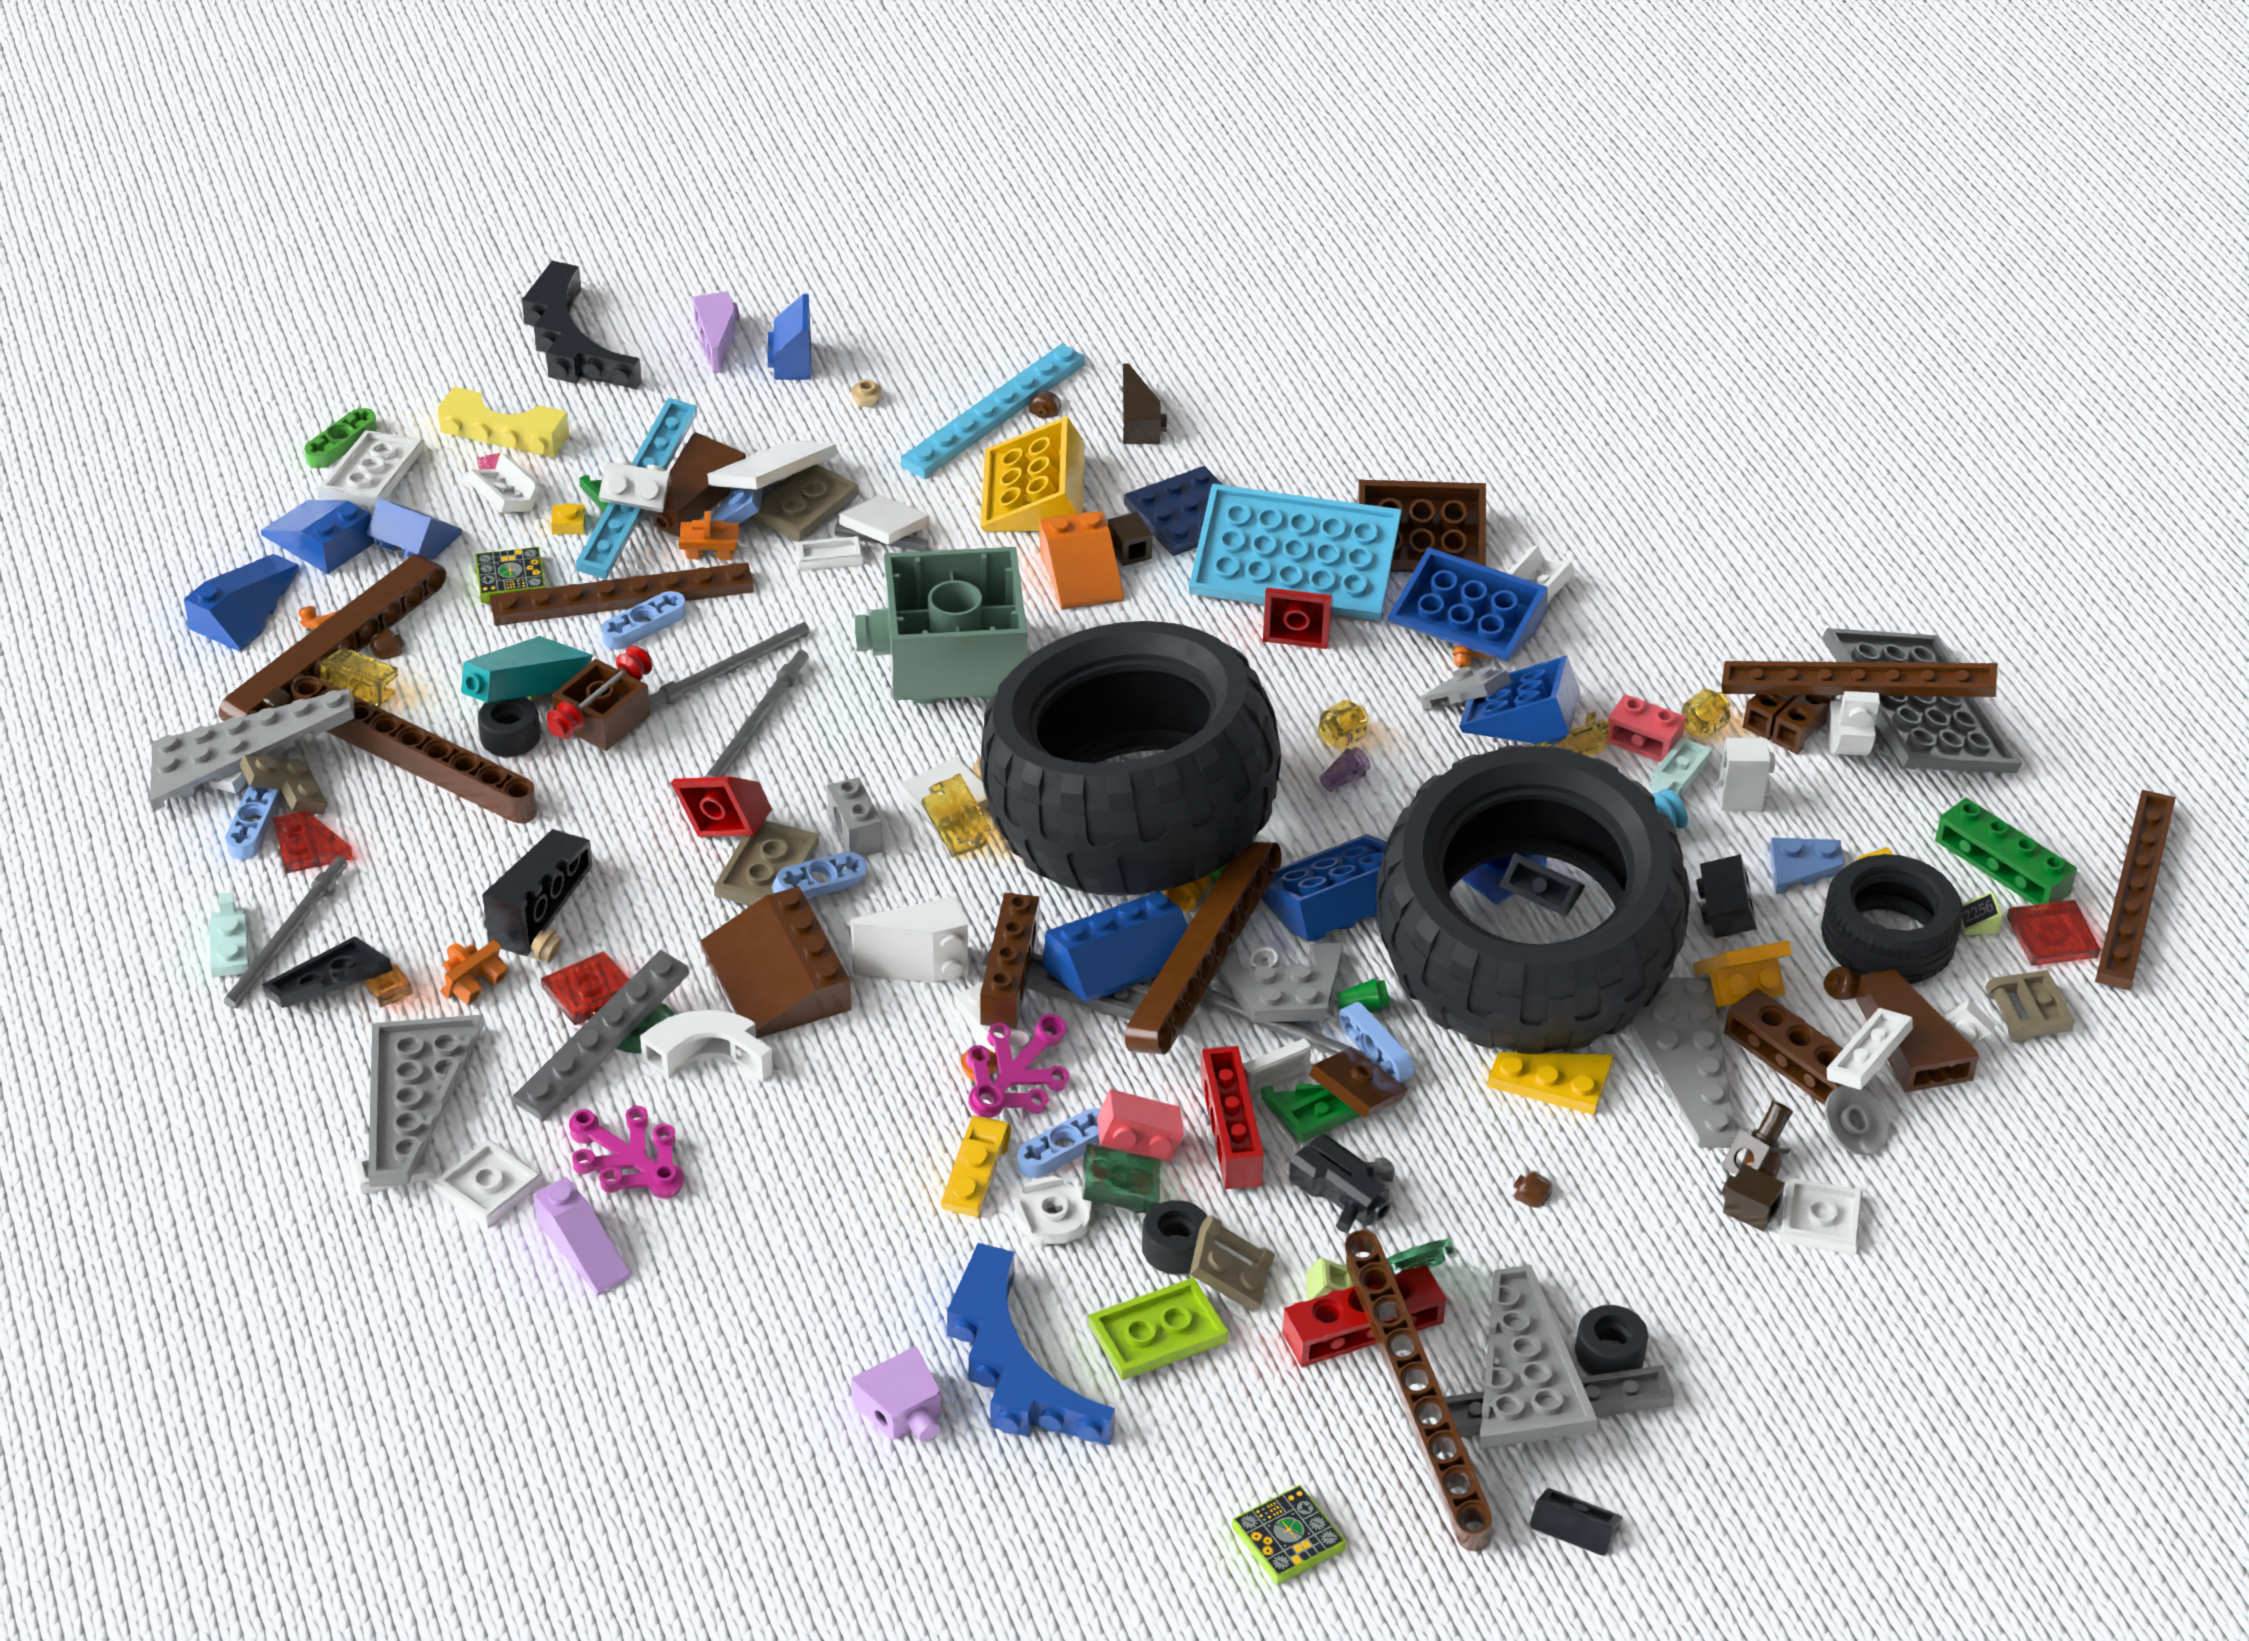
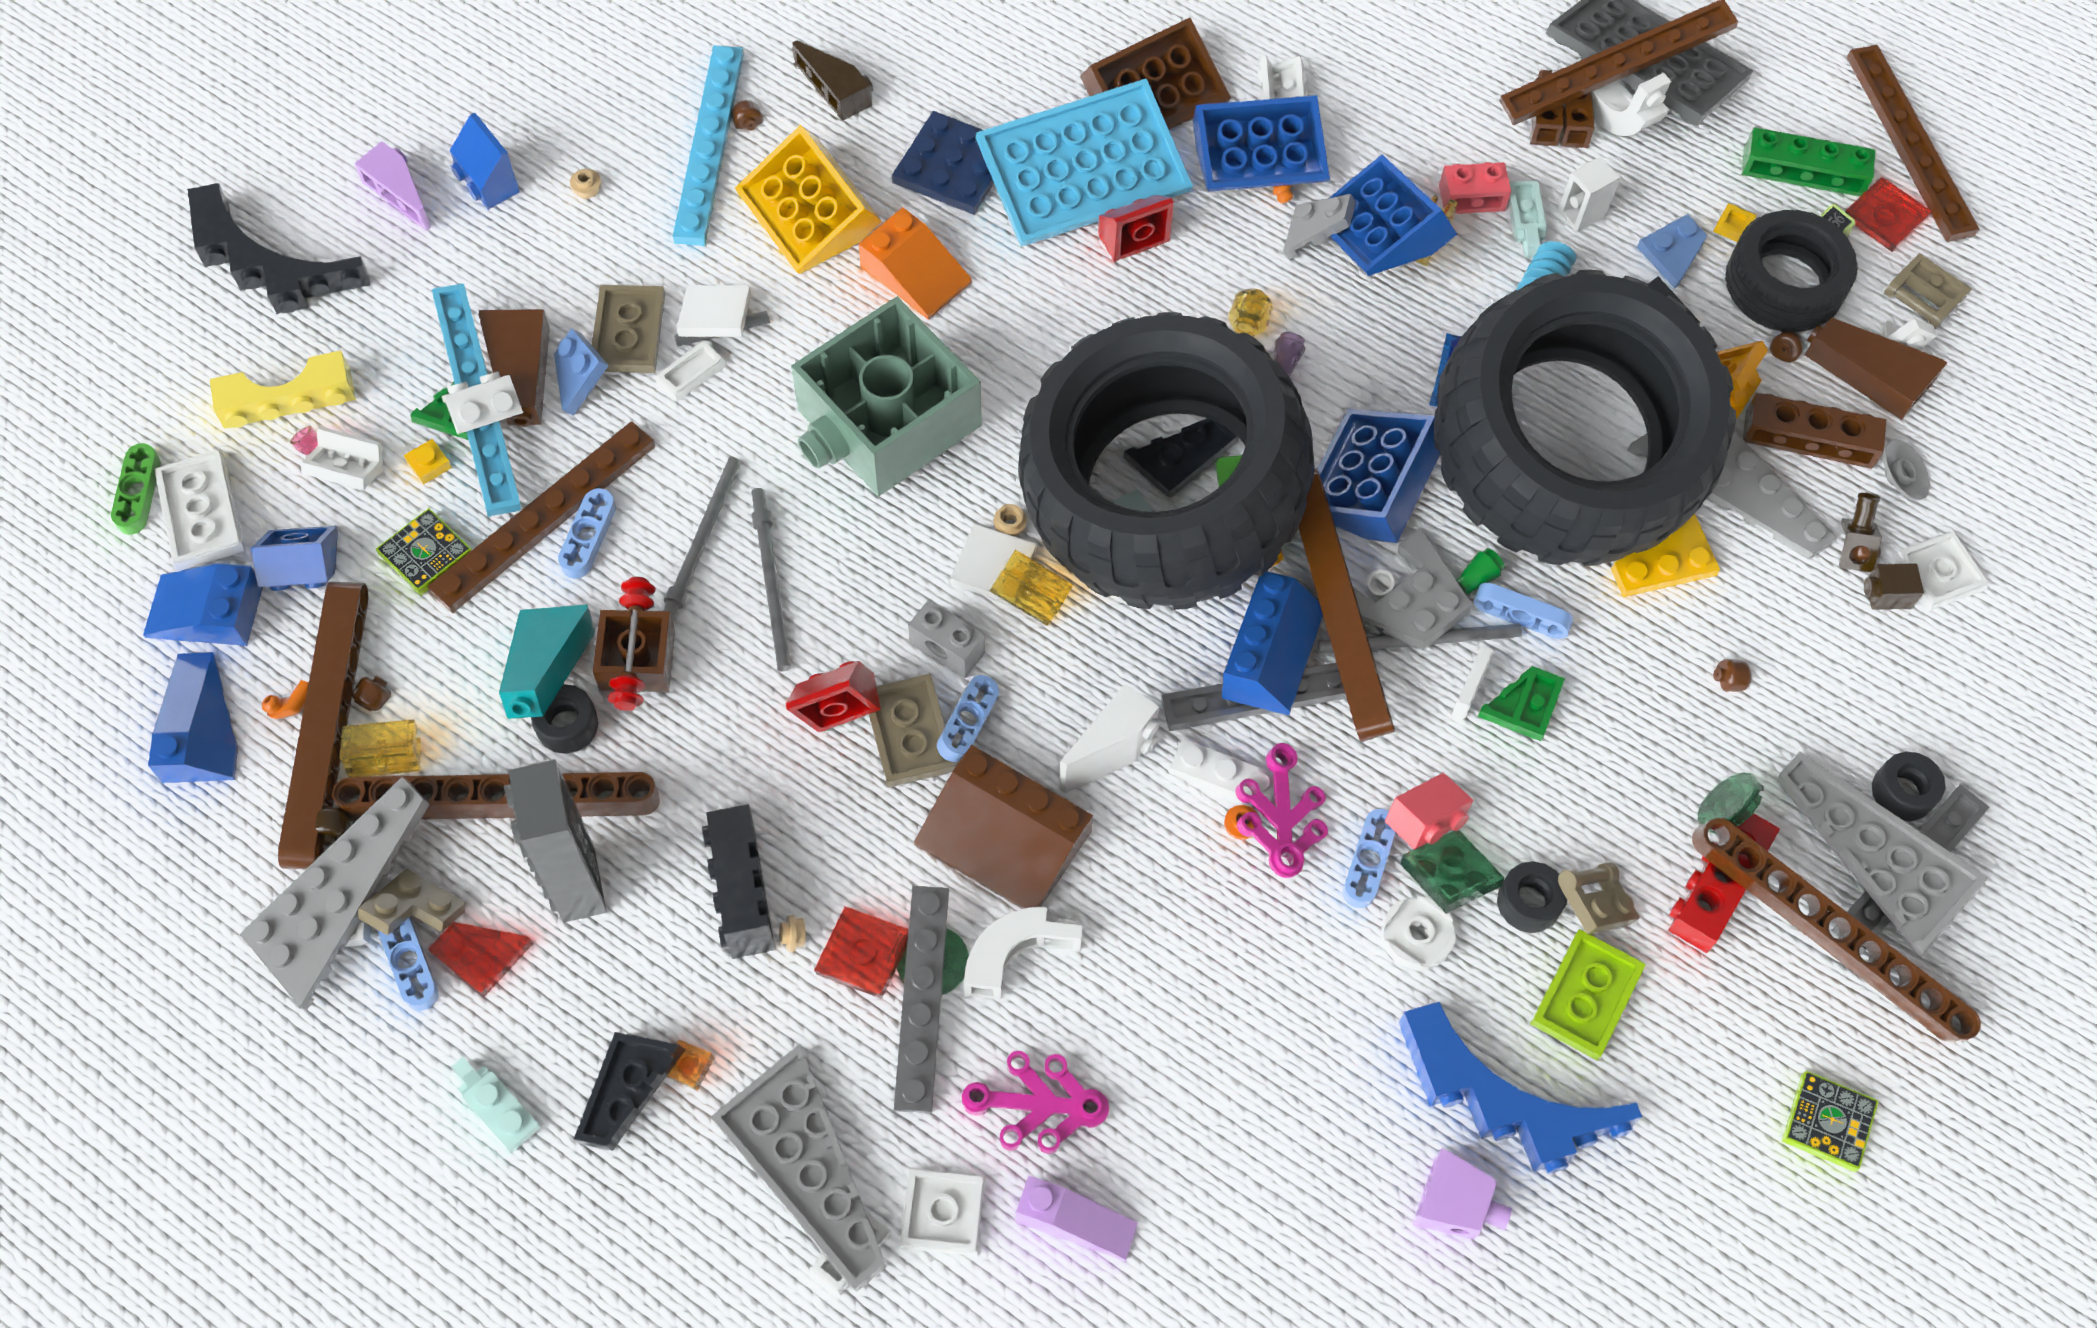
camera: 35 degrees left, 20 degrees up
(320, 887) = (534, 993): flat silver bar -> none
(410, 761) = (555, 841): none -> dark grey brick
(467, 965) = (755, 986): orange hips -> none
(708, 535) = (579, 414): orange hips -> none
(772, 464) = (577, 309): white tile -> none
(975, 1165) = (1325, 926): yellow plate -> none
(1010, 960) = (1204, 713): reddish brown brick -> none
(1130, 539) = (938, 215): dark brown brick -> none
(1231, 1117) = (1486, 756): red brick -> none
(1326, 1277) = (1667, 862): yellowish green slope -> none
(1344, 1179) = (1608, 759): black piece -> none
(1358, 1082) = (1547, 659): reddish brown plate -> none
(1541, 885) = (1631, 418): black slope -> none
(1575, 1521) = (2005, 963): black slope -> none
(1706, 713) = (1506, 145): clear yellow head -> none
(1869, 1048) = (1886, 405): white plate -> none

